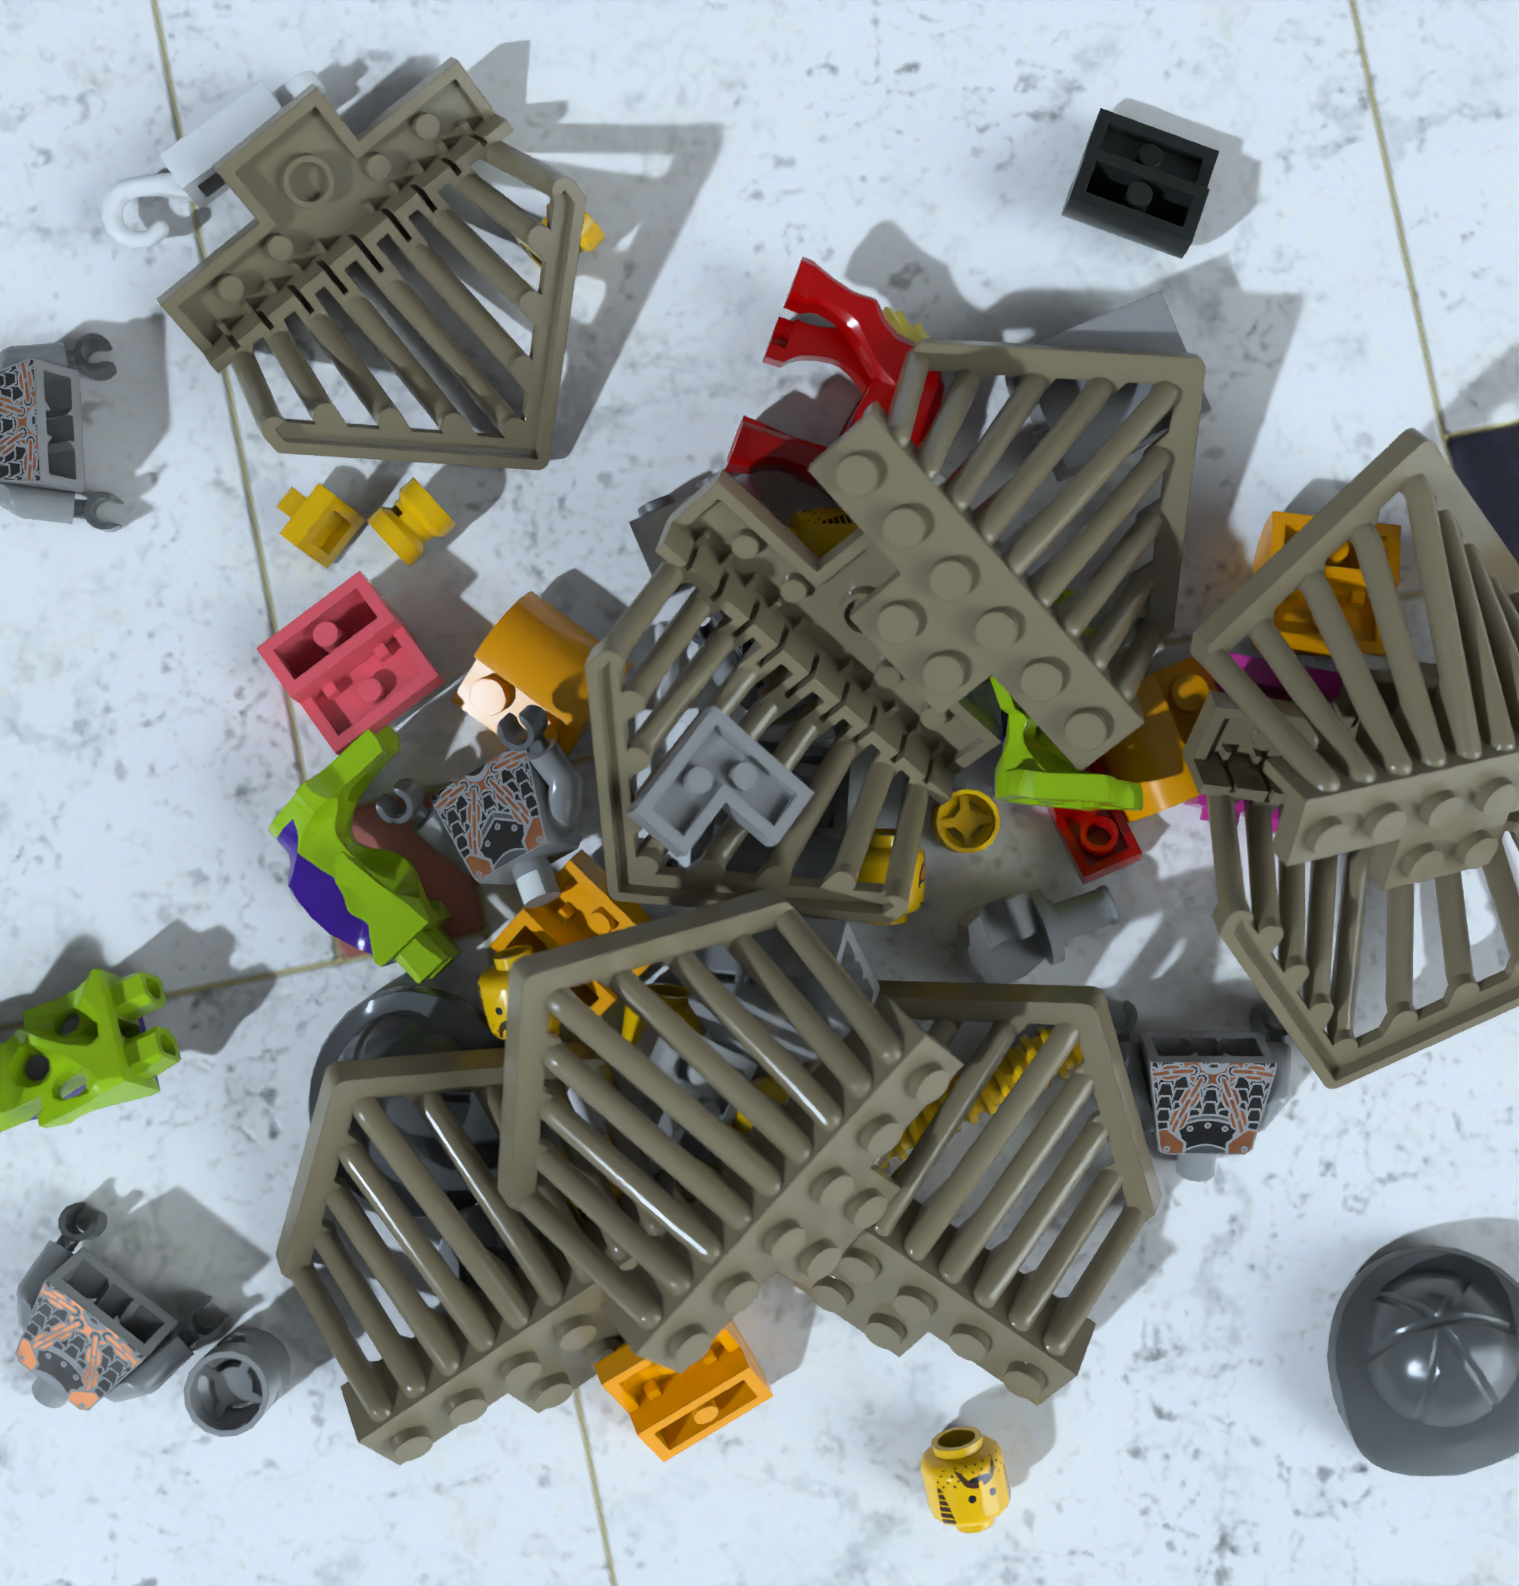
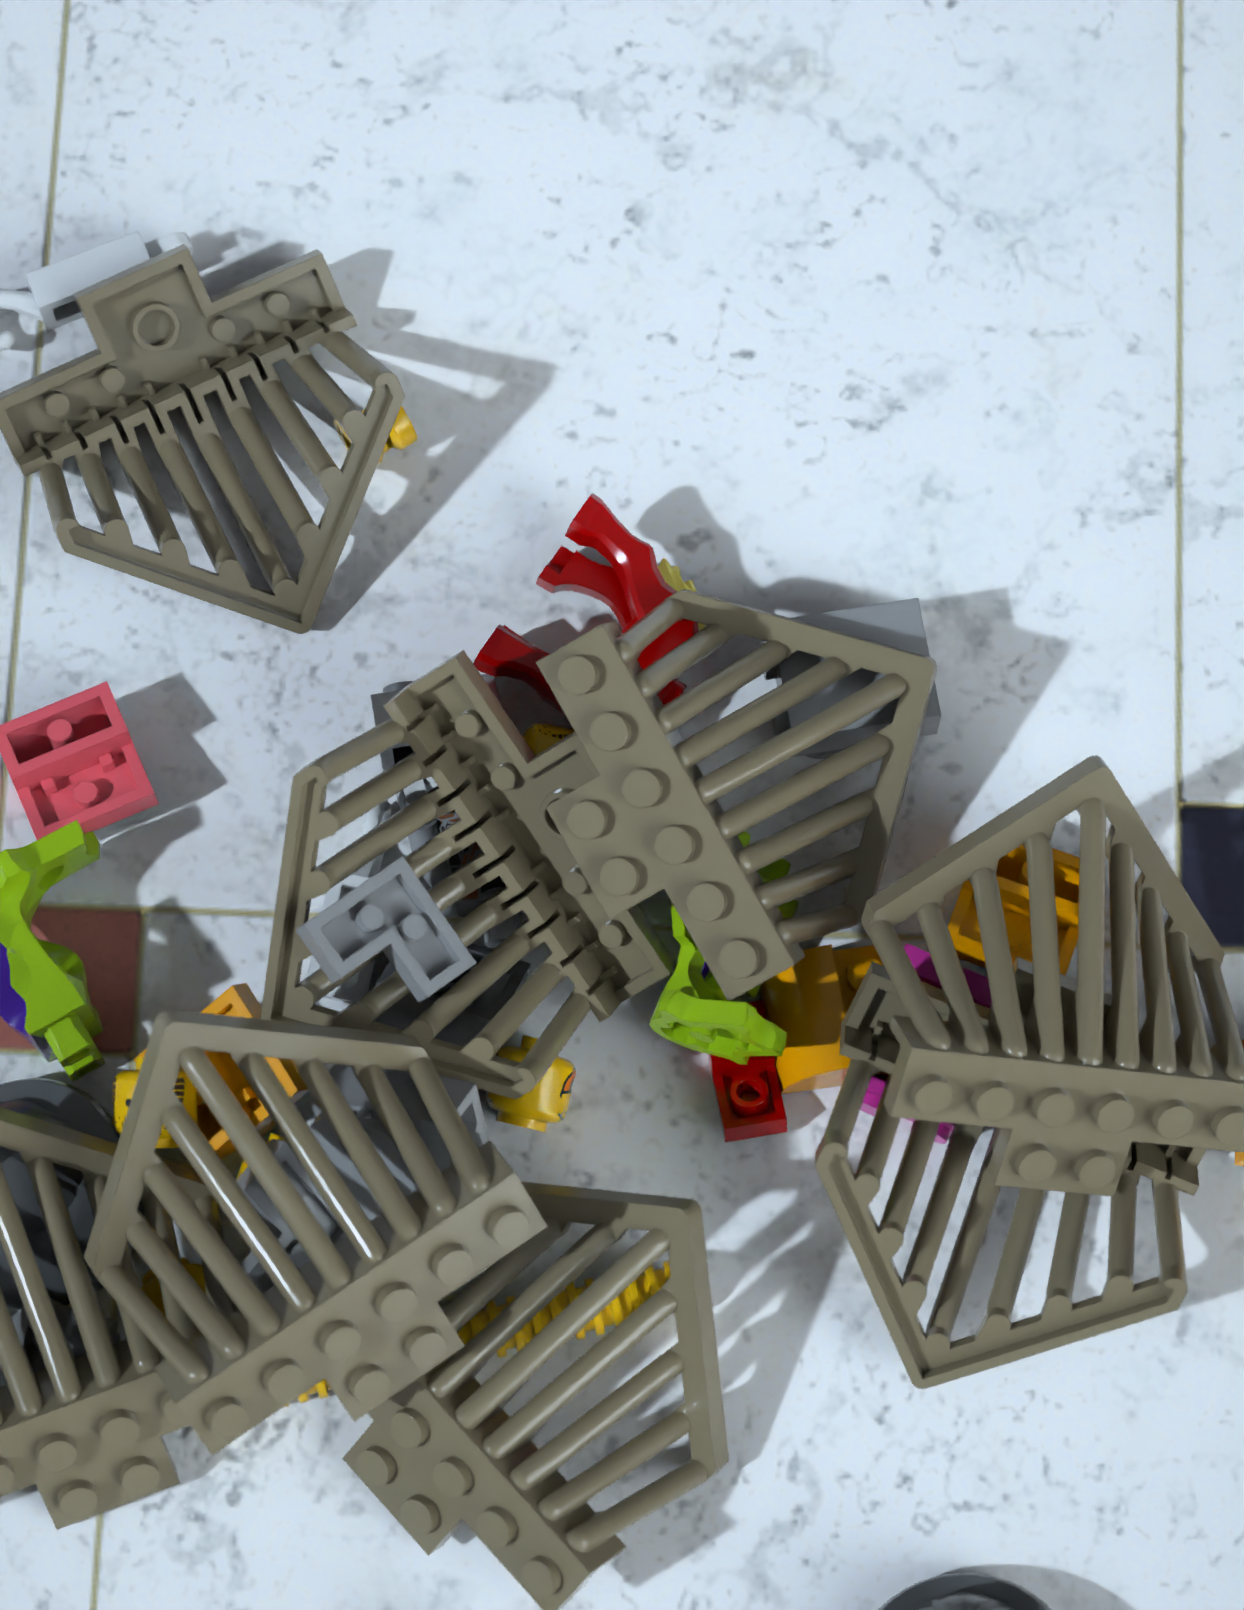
camera: 15 degrees right, 15 degrees down
(319, 523) = (79, 633): yellow tile -> none
(411, 522) = (167, 652): yellow wheel -> none
(506, 815) = (186, 933): torso -> none
(532, 660) = (237, 825): light orange brick -> none
(681, 1409) = (210, 1517): light orange brick -> none
(976, 821) = (622, 1037): yellow wheel -> none
(1021, 930) = (658, 1162): light grey piece -> none
(1141, 184) = (931, 503): pearl dark grey brick -> none
(1207, 1088) = (791, 1357): light grey torso -> none

